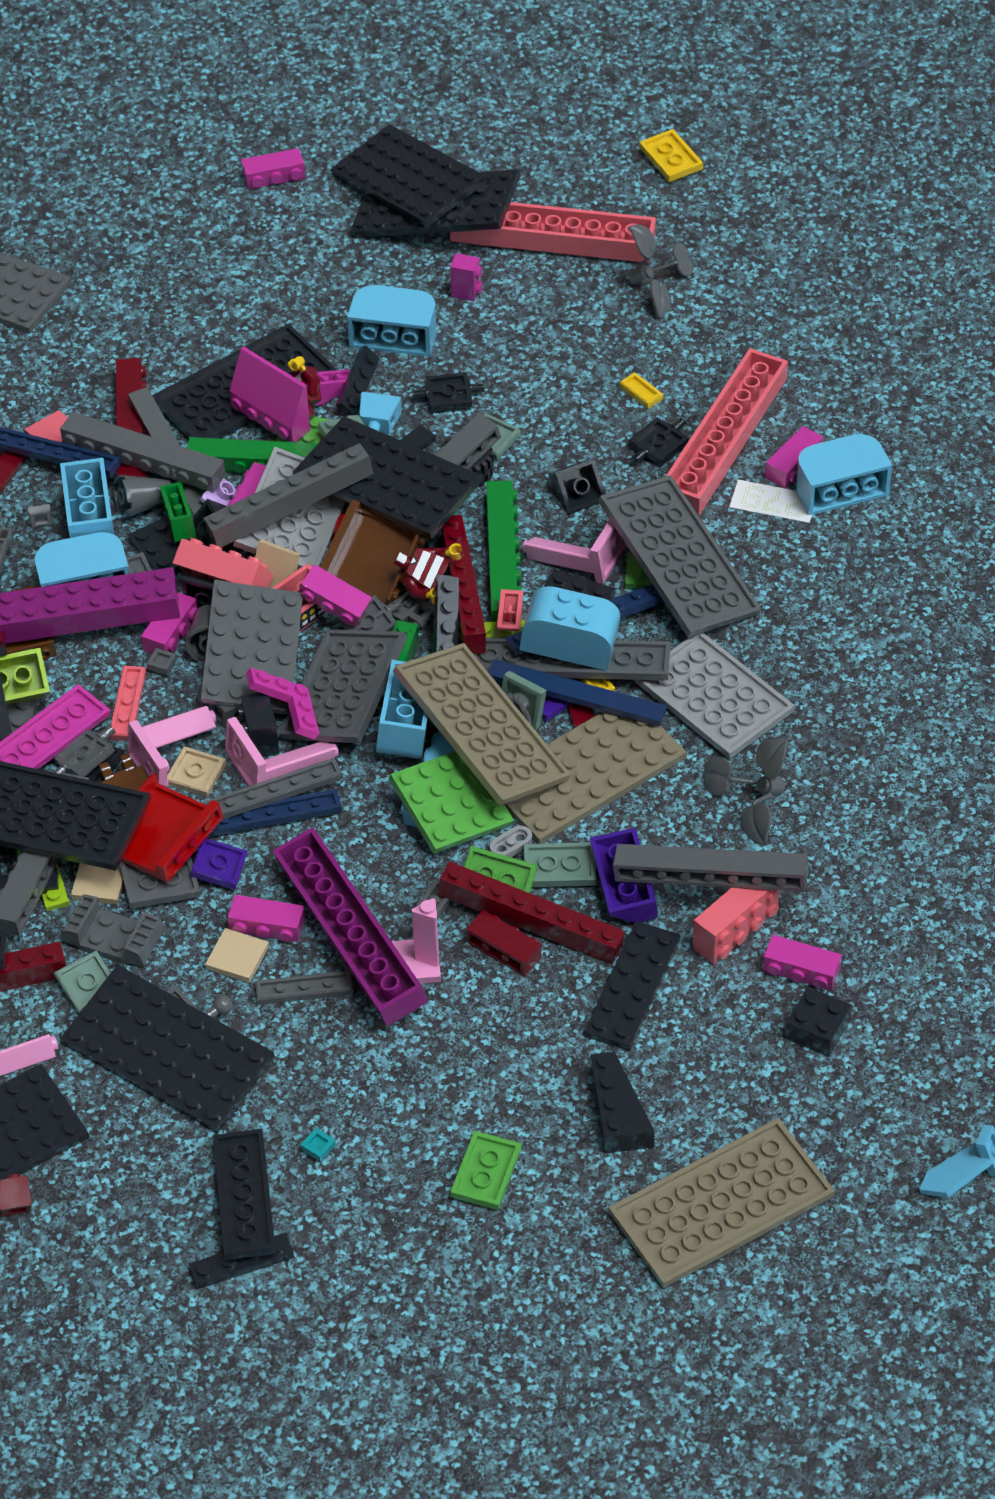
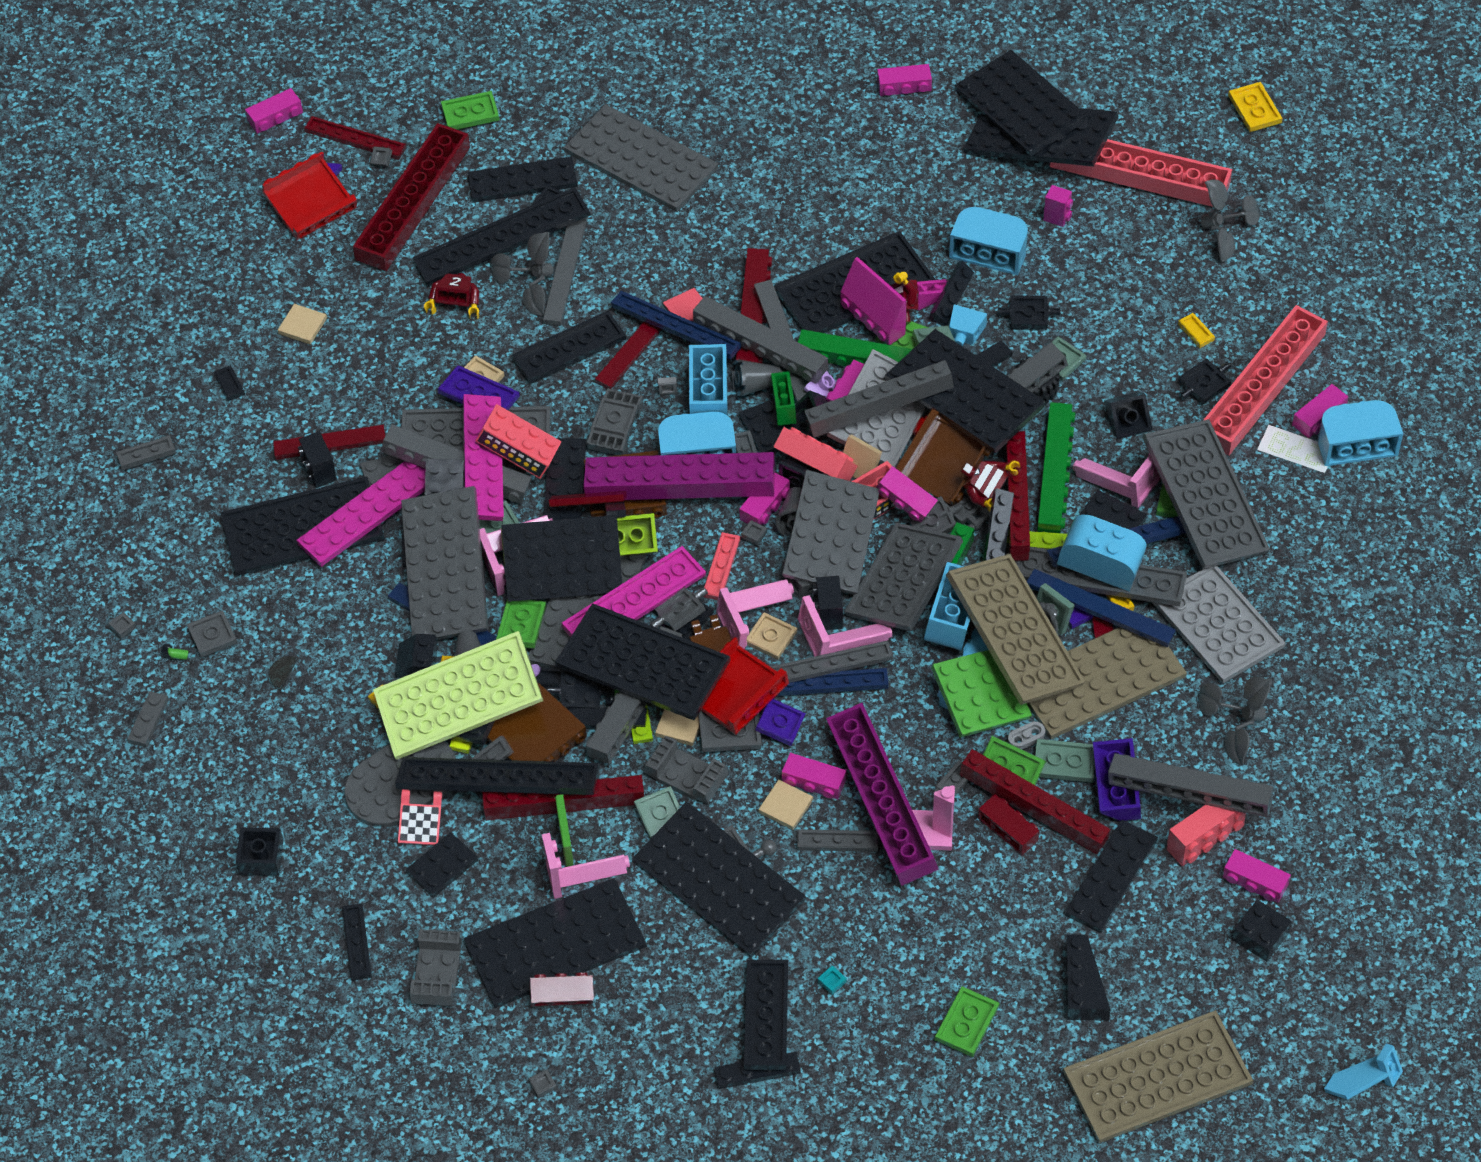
camera: 10 degrees right, 5 degrees up
(295, 694) = (859, 578): dark pink plate -> none
(510, 610) = (1054, 526): coral slope -> none

